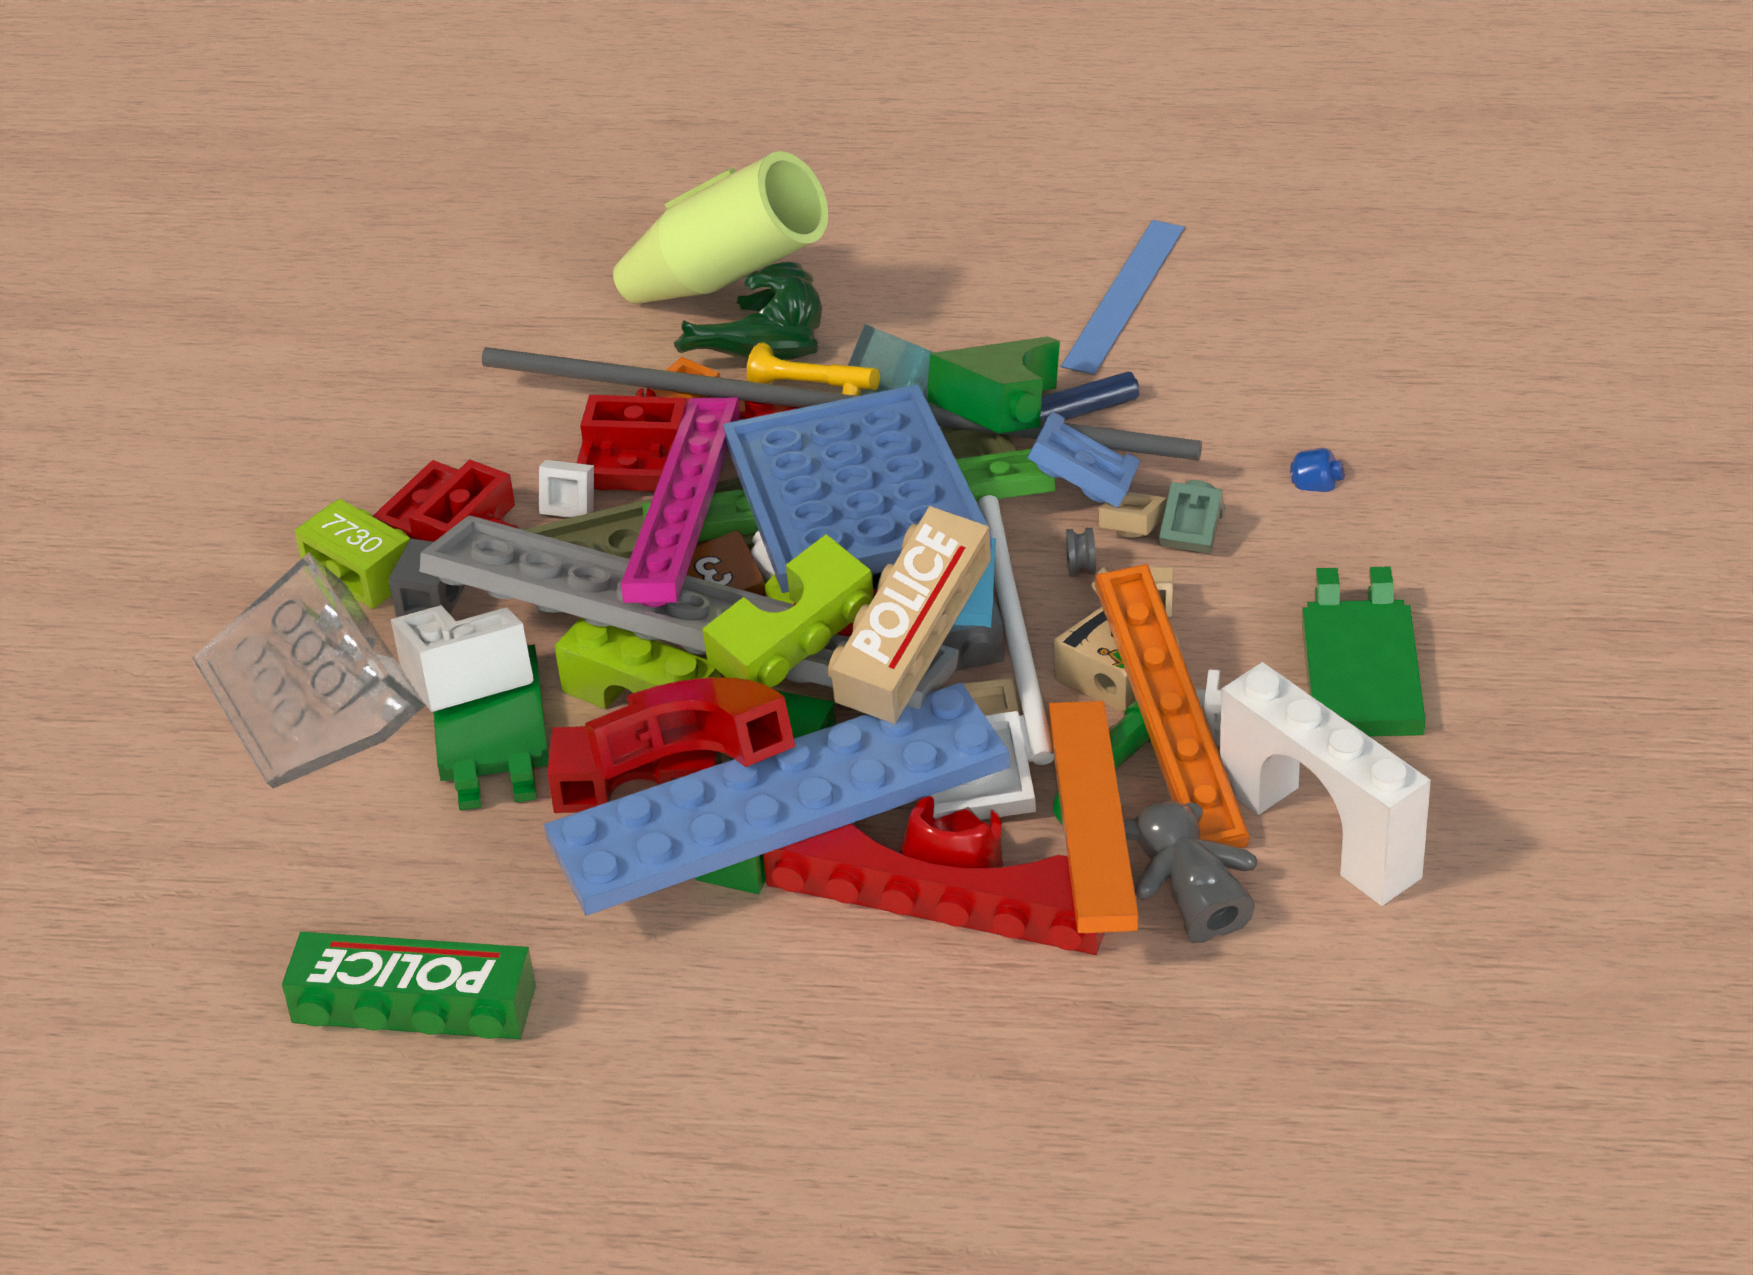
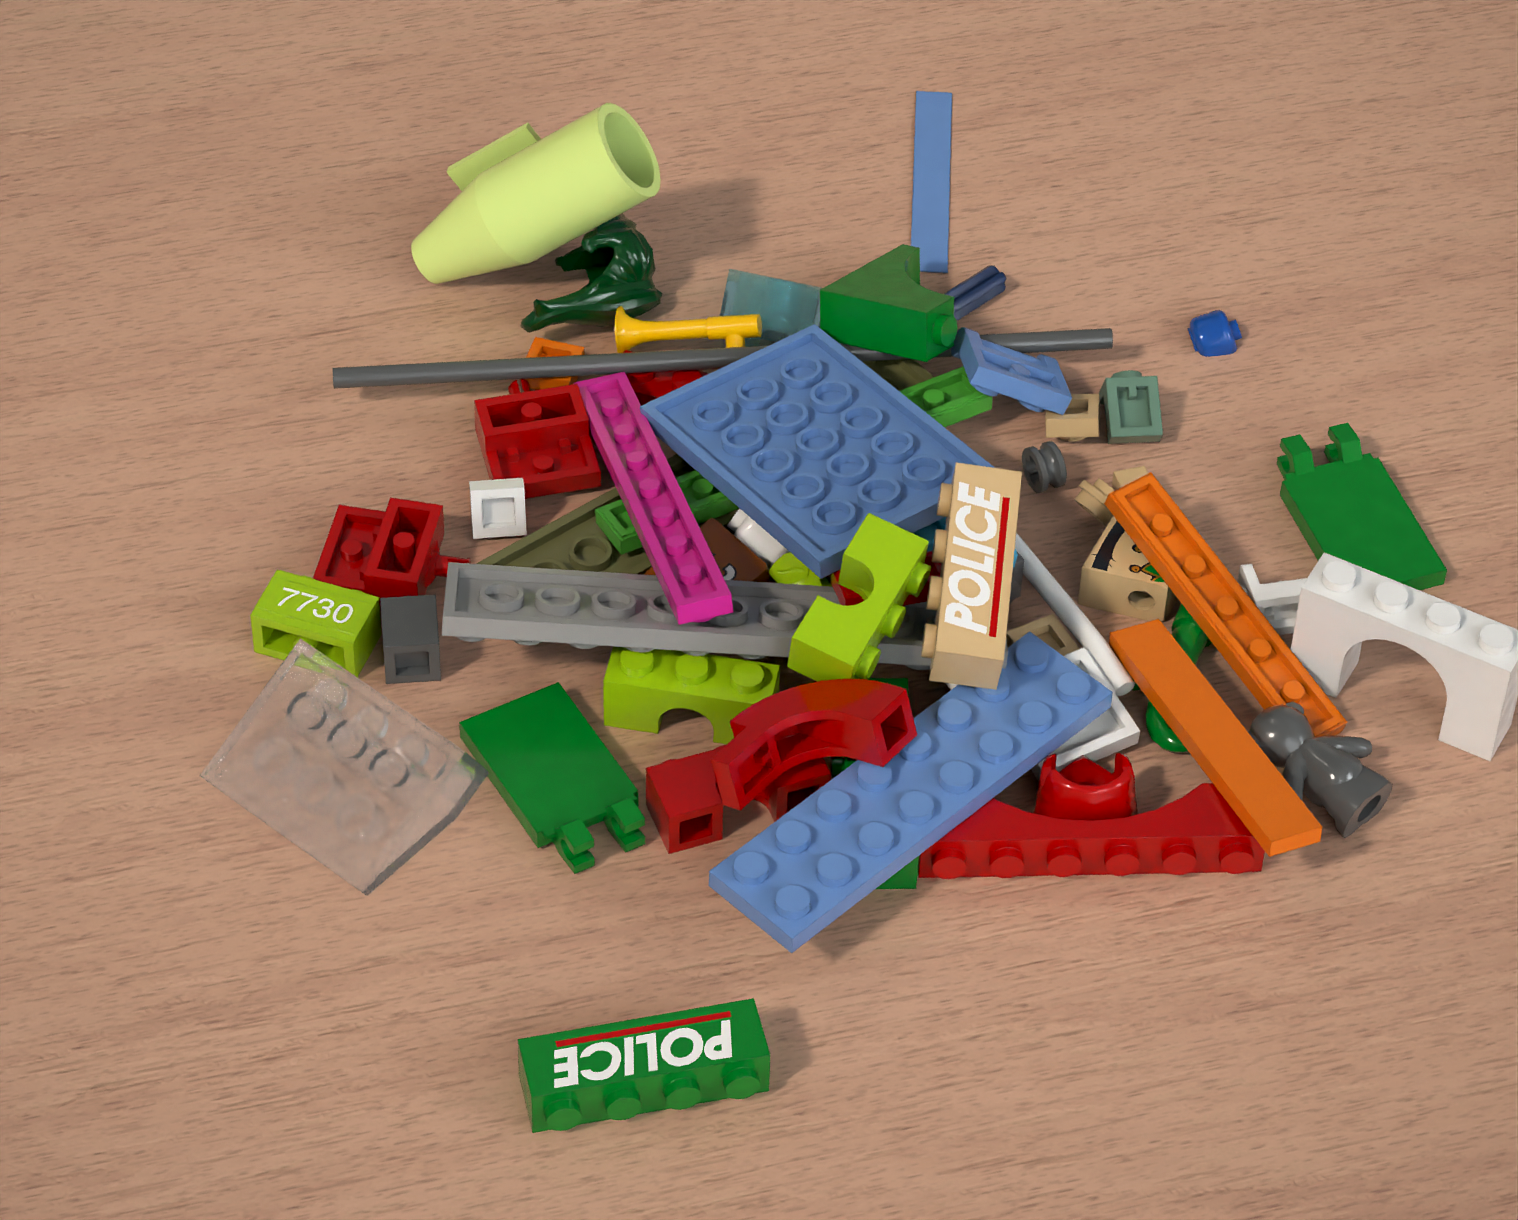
camera: 25 degrees left, 5 degrees up
(462, 658) = (506, 717): white panel -> none

